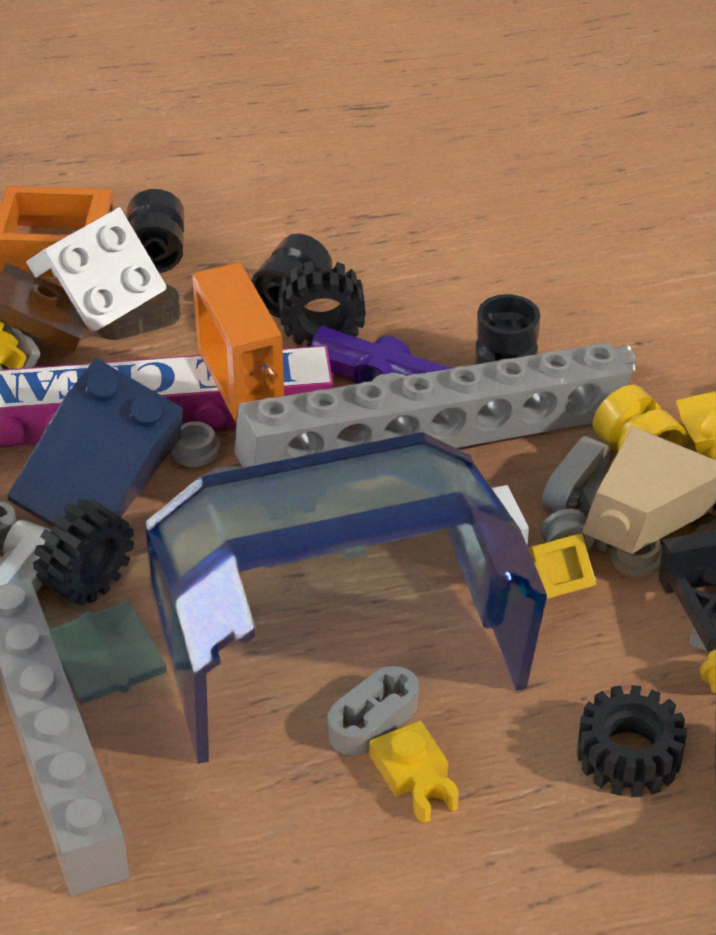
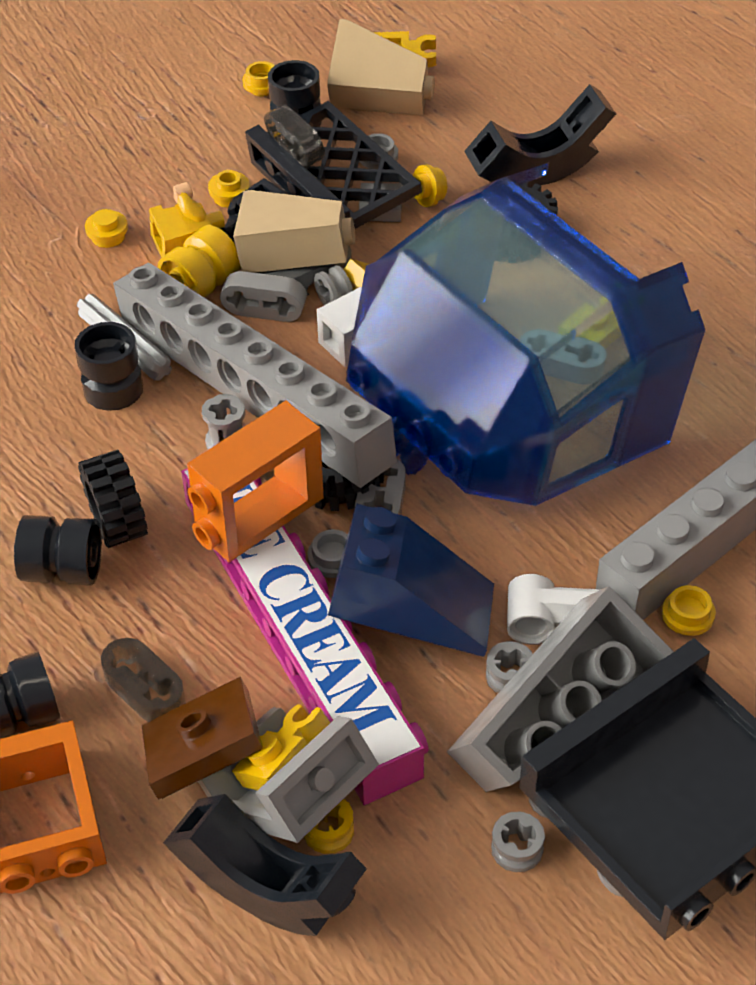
camera: 110 degrees left, 5 degrees up
(83, 551) = (534, 545): black tyre -> none
(101, 269) = (122, 695): white bracket -> none
(106, 652) = (593, 529): clear light blue piece -> none
(367, 360) = (169, 449): dark purple piece -> none

